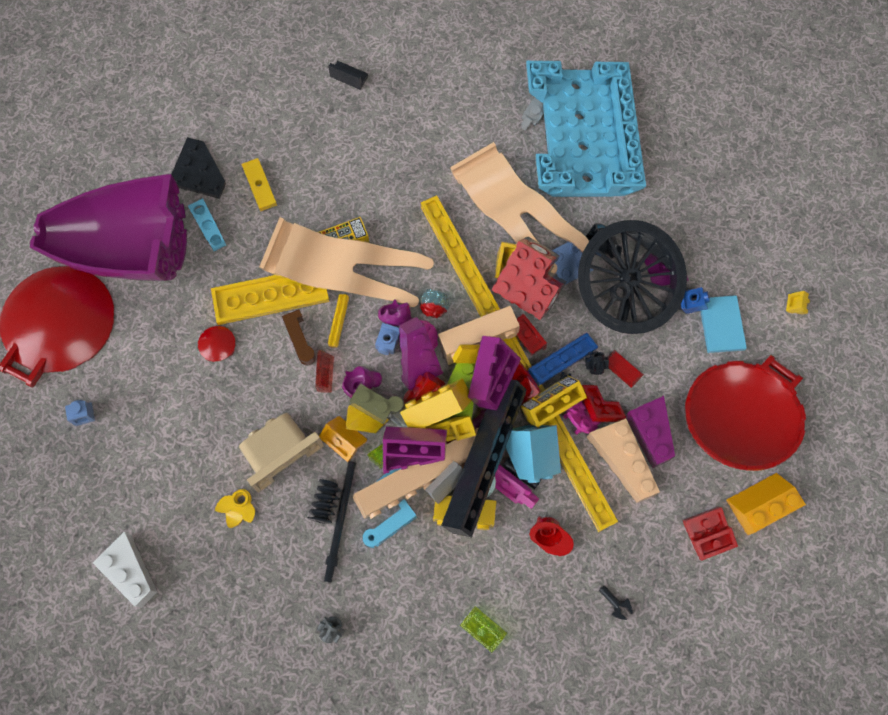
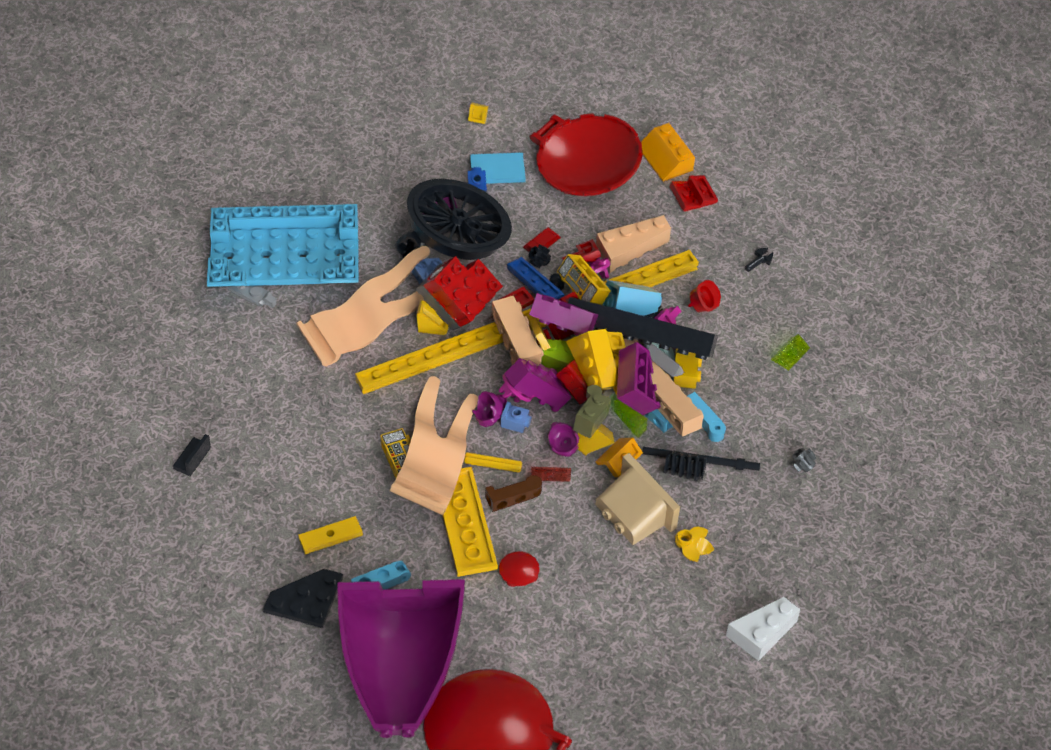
camera: 90 degrees left, 20 degrees down
(80, 409) = (601, 685): medium blue brick -> none
(434, 303) = (478, 377): piece -> none
(653, 431) = (603, 217): magenta wedge -> none

